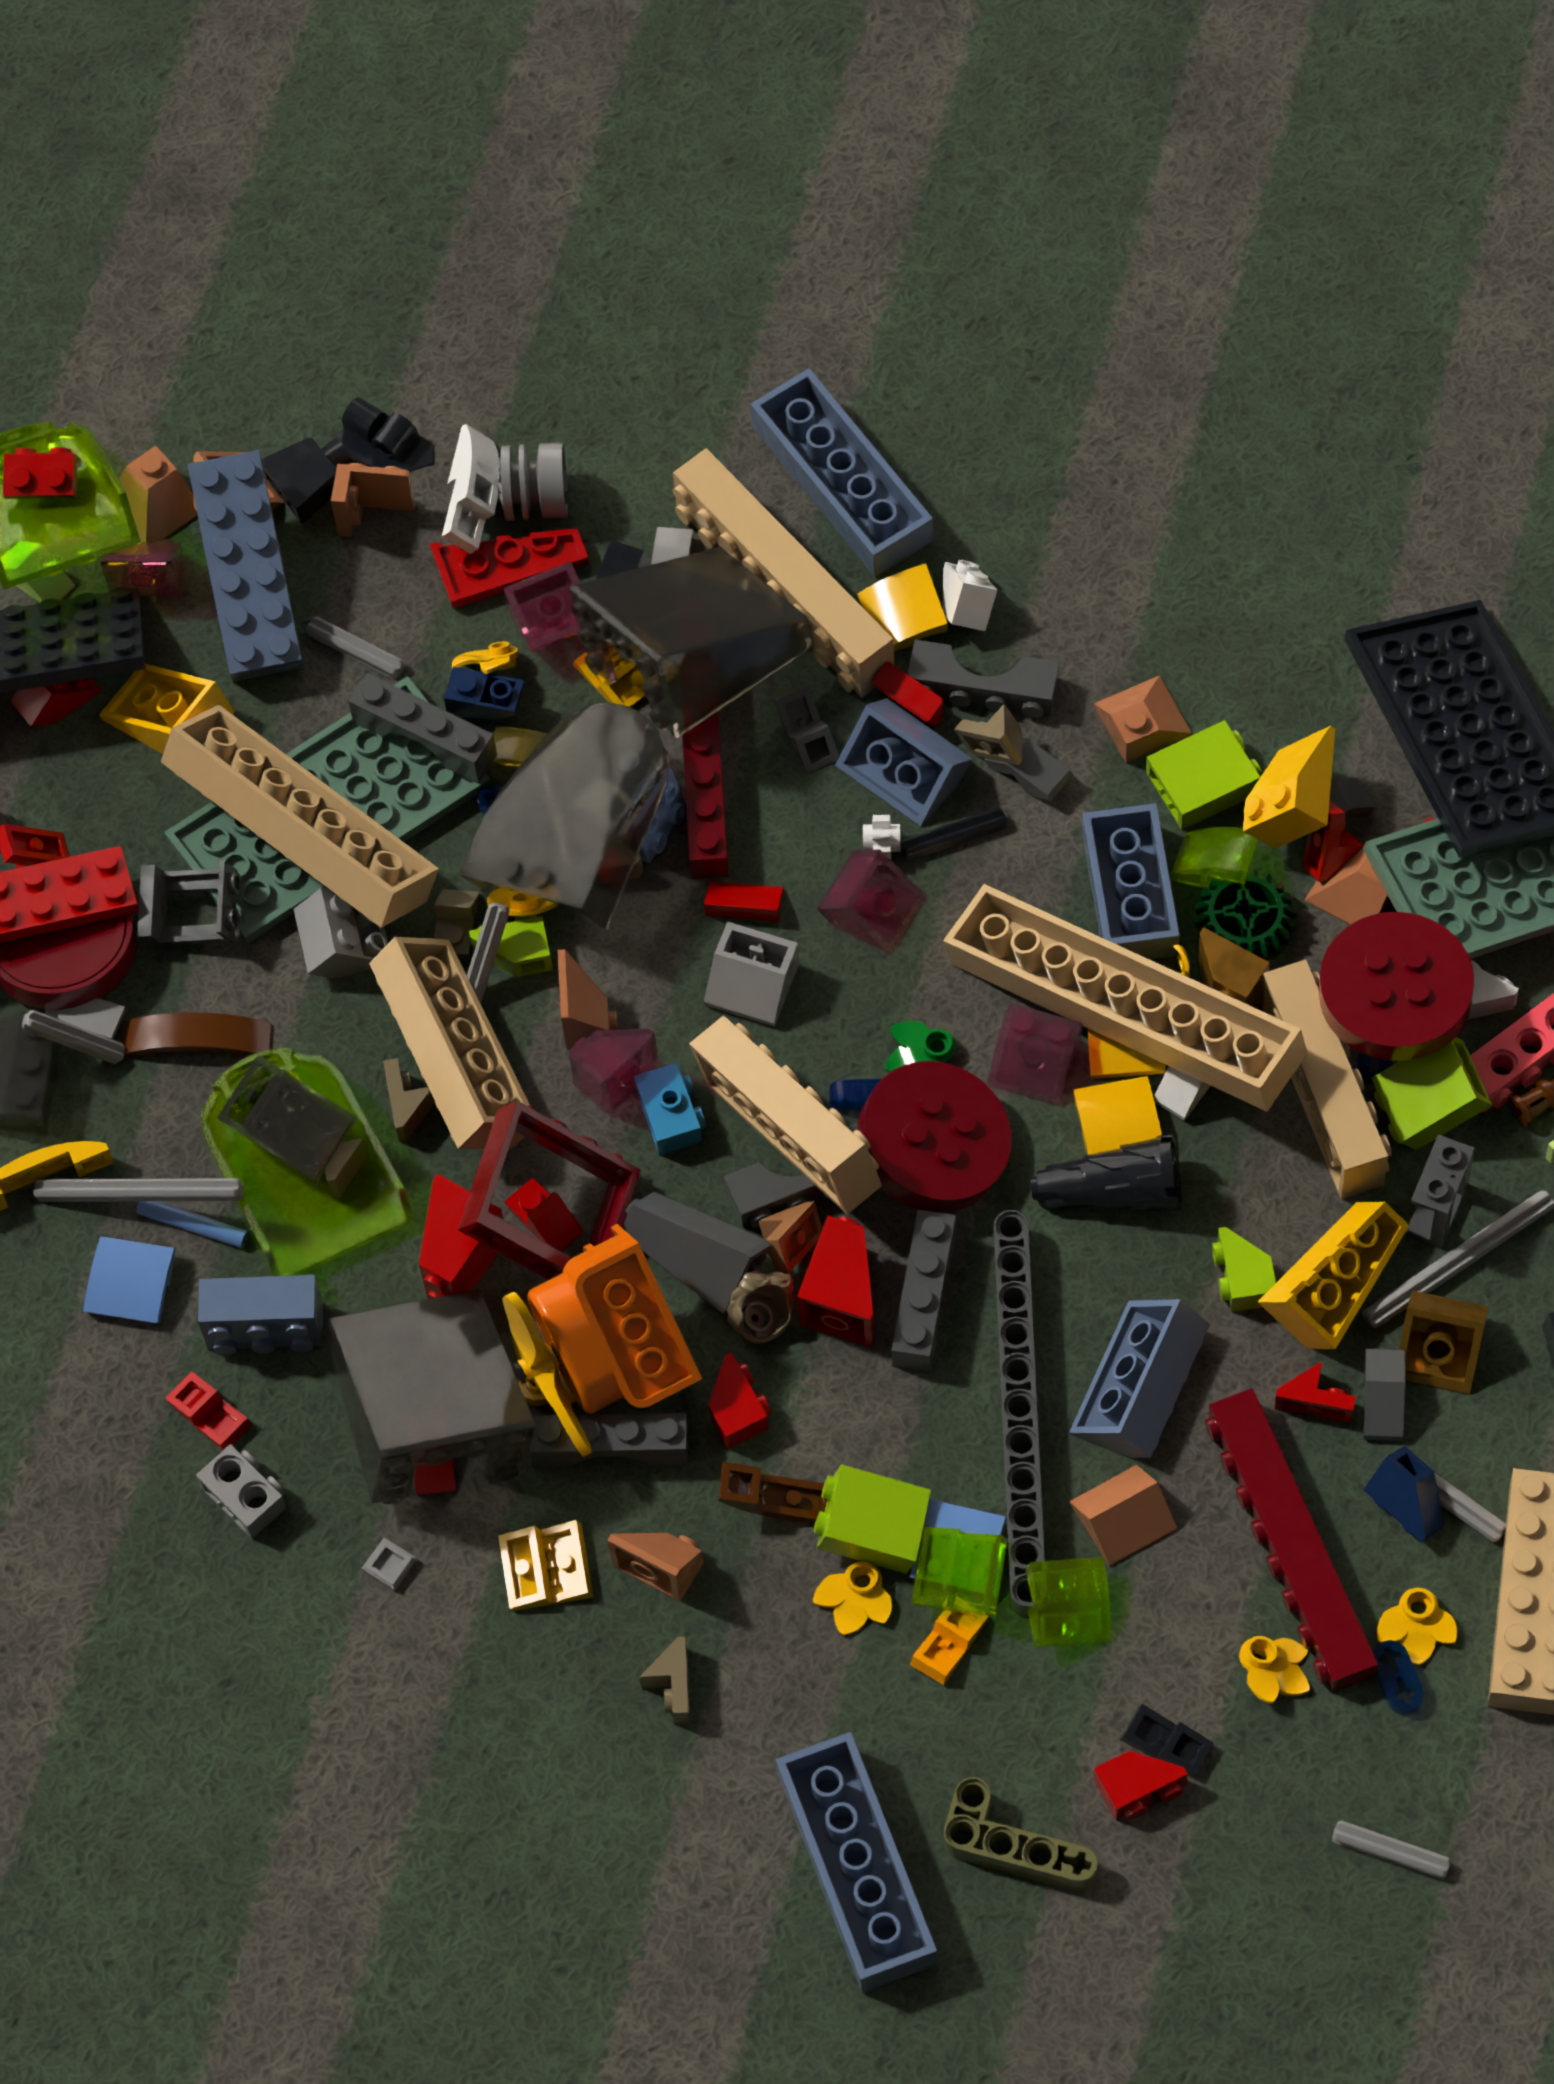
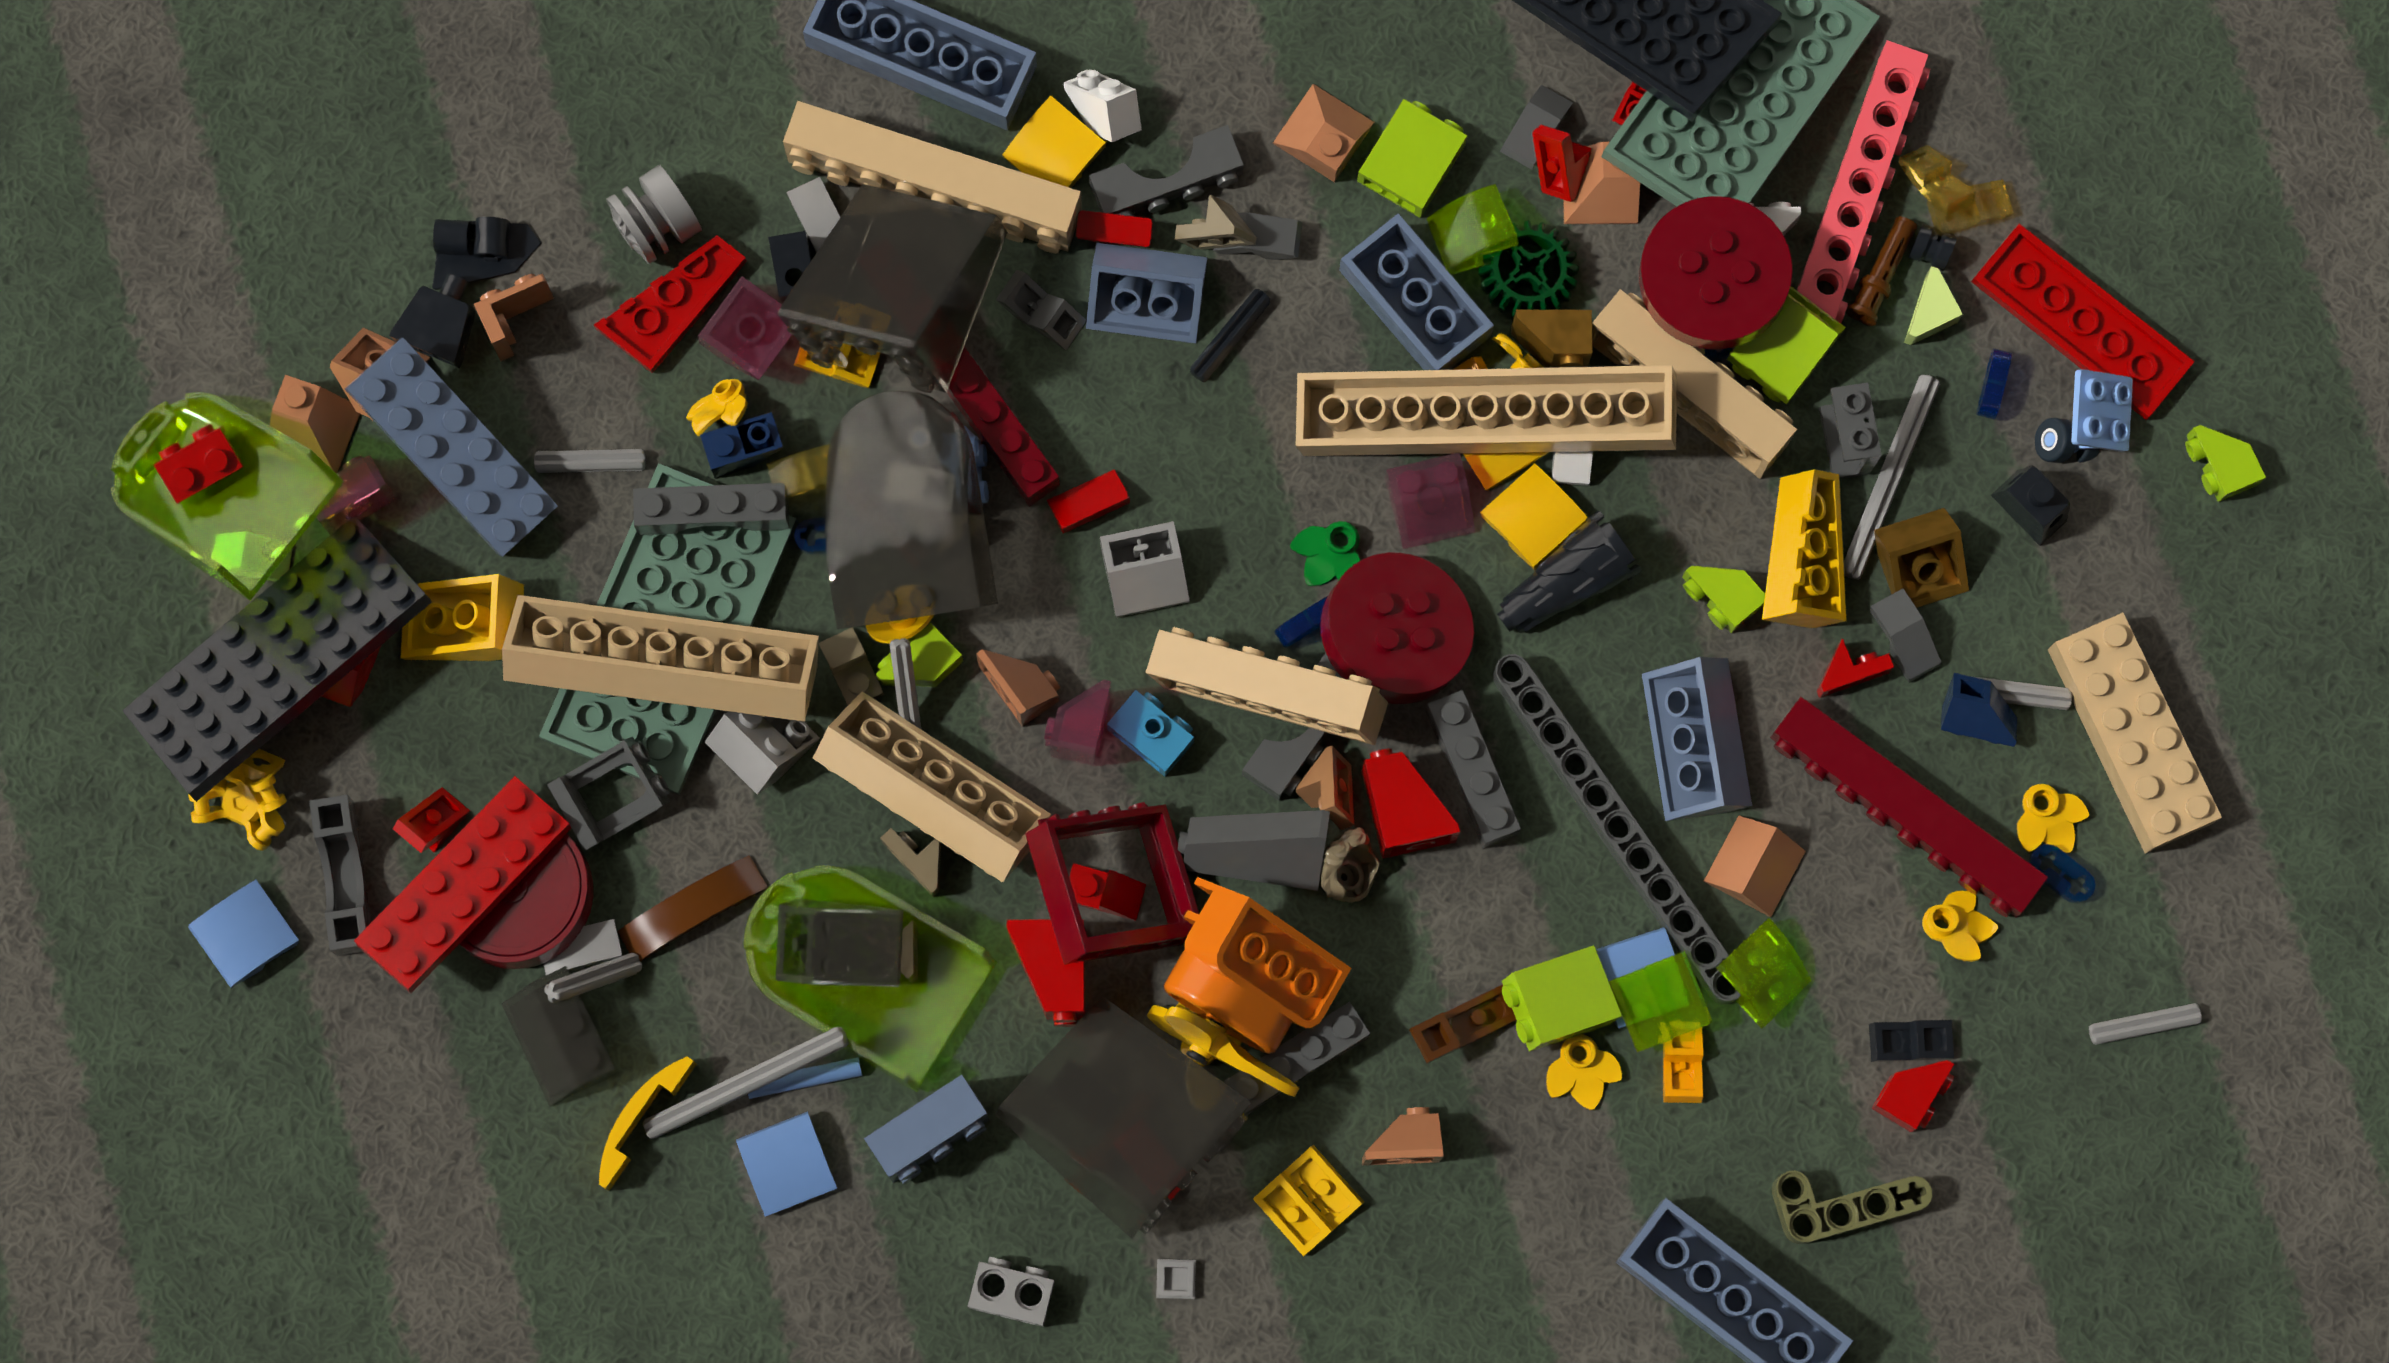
camera: 40 degrees left, 15 degrees up
(208, 1411) = (932, 1239): red slope -> none
(474, 489) = (603, 246): white slope -> none
(671, 1671) = (1477, 1226): dark tan slope -> none
(734, 1406) = (1379, 966): red slope -> none
(872, 900) = (1201, 438): clear pink slope -> none
(882, 835) = (1174, 376): white gear -> none
(1292, 791) = (1507, 132): yellow slope -> none

